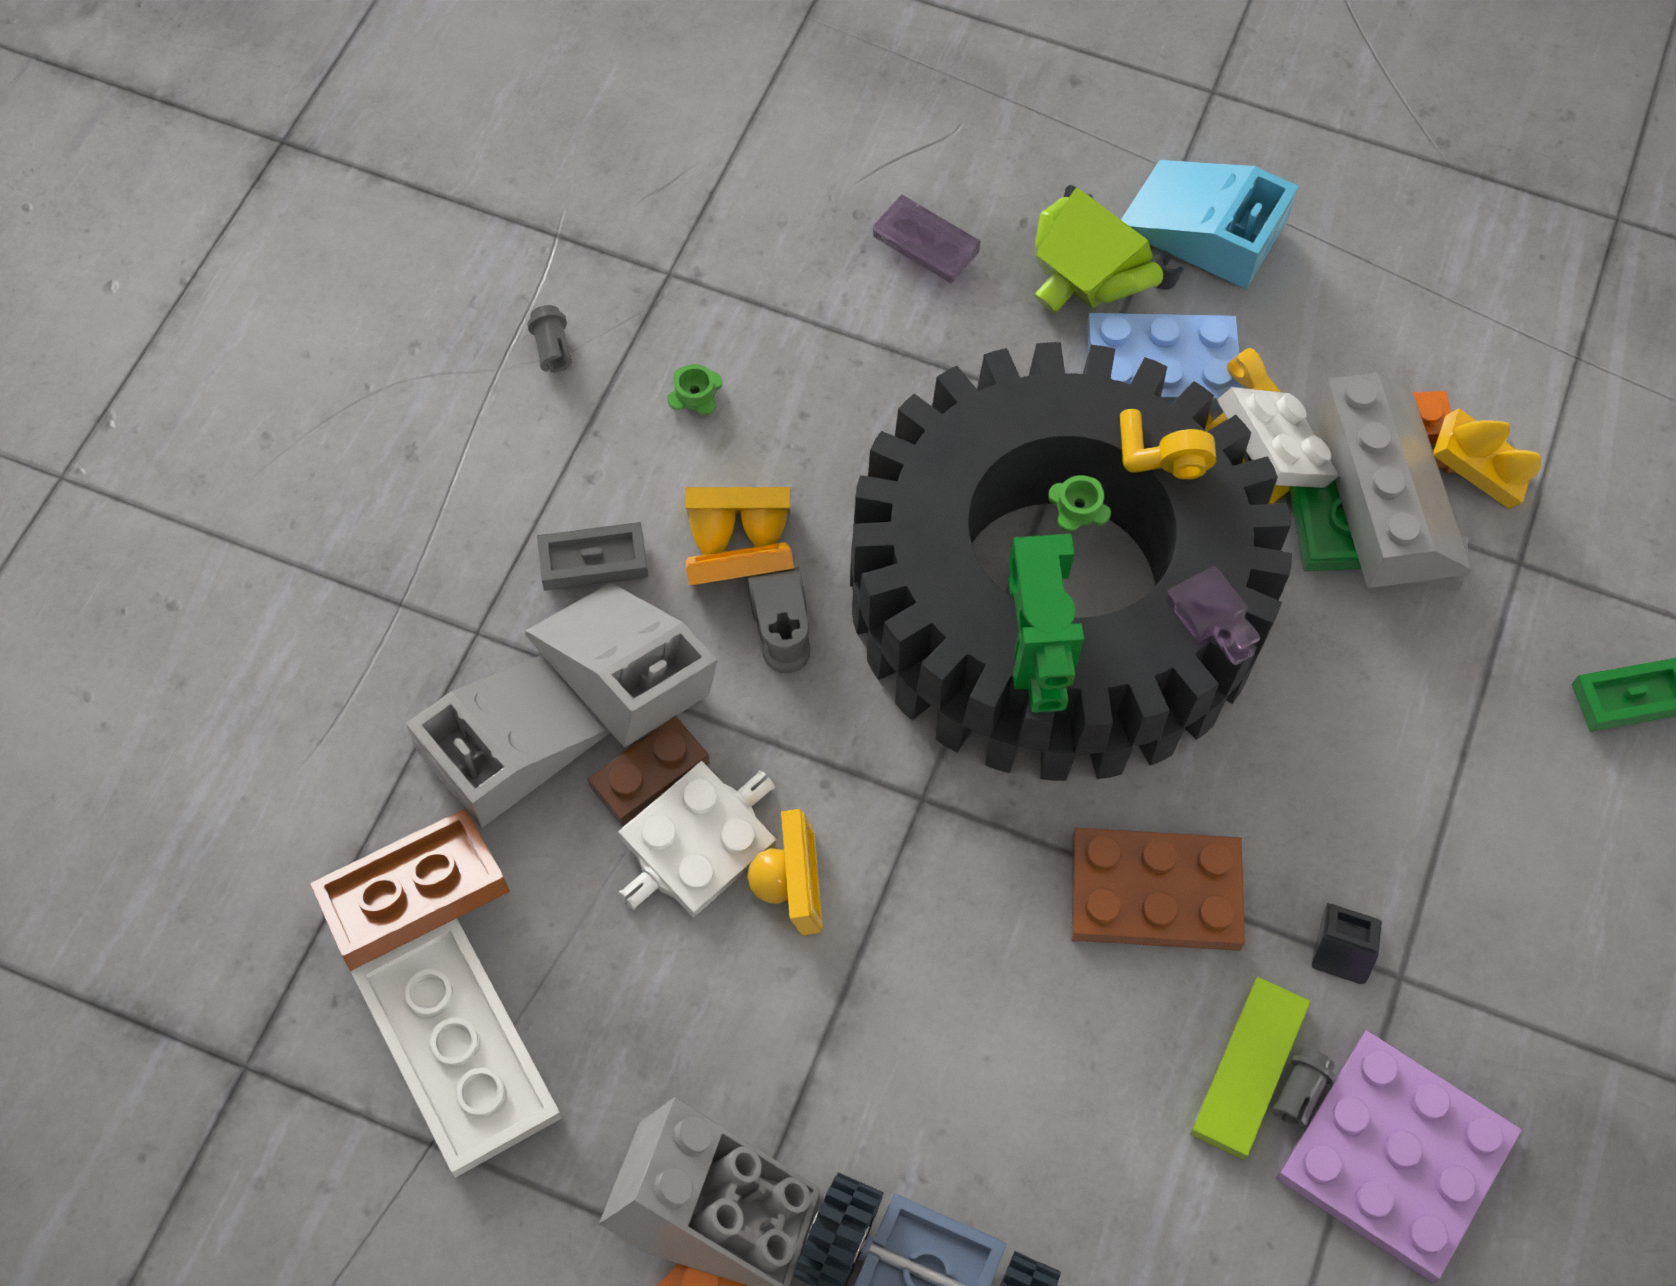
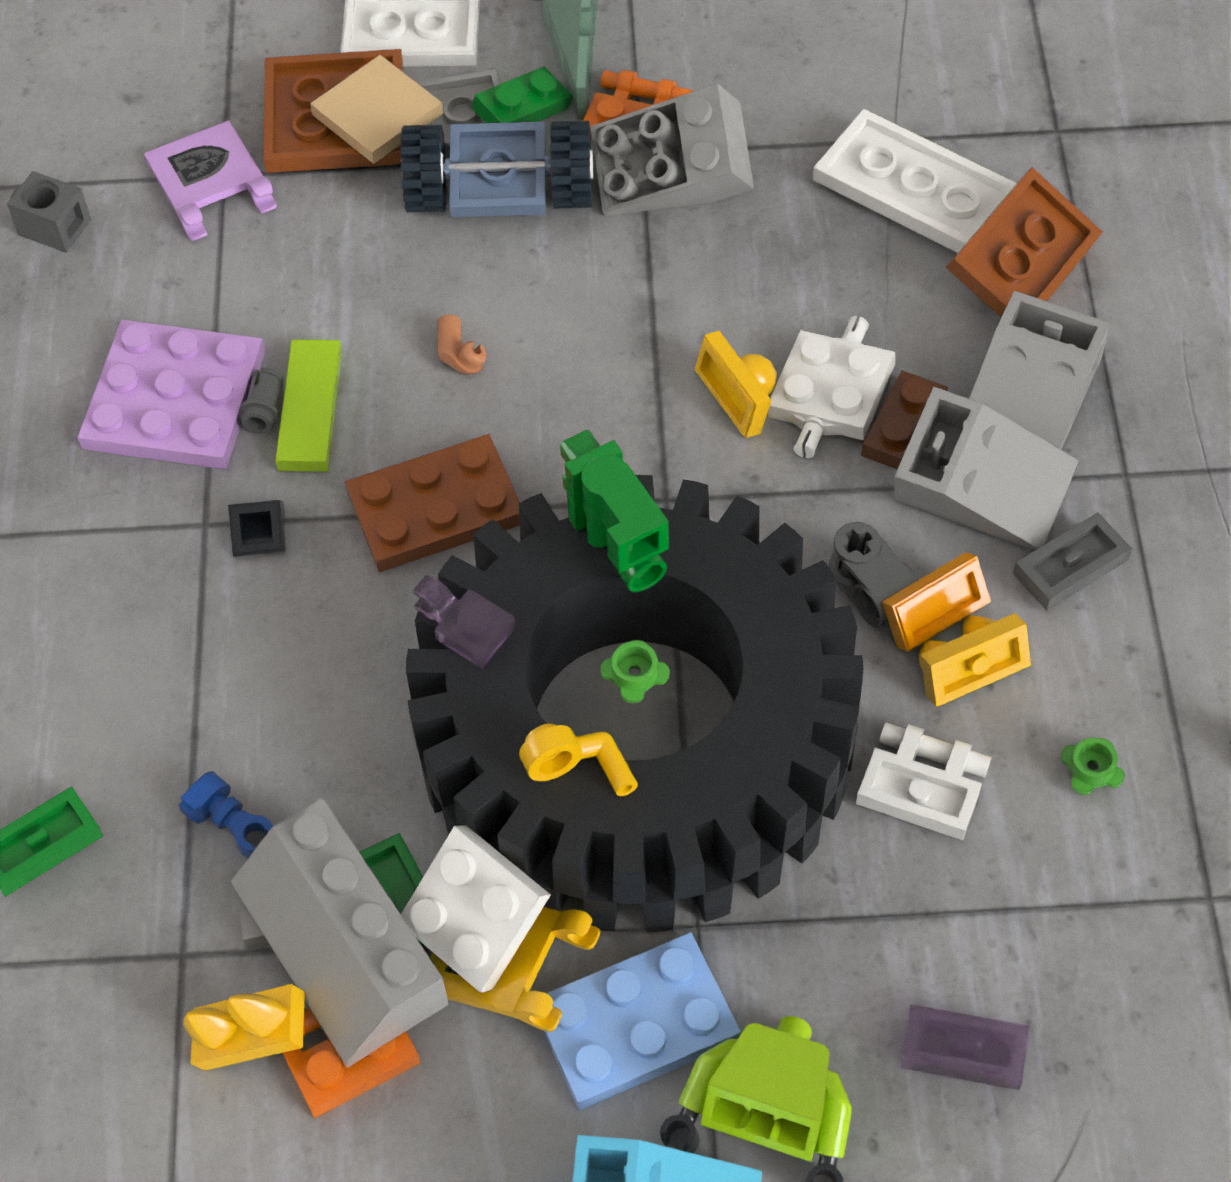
camera: 160 degrees right, 5 degrees down
(846, 418) = (921, 792): none -> white plate
(1068, 1062) = (453, 351): none -> nougat arm
(1466, 670) = (209, 798): none -> blue piece

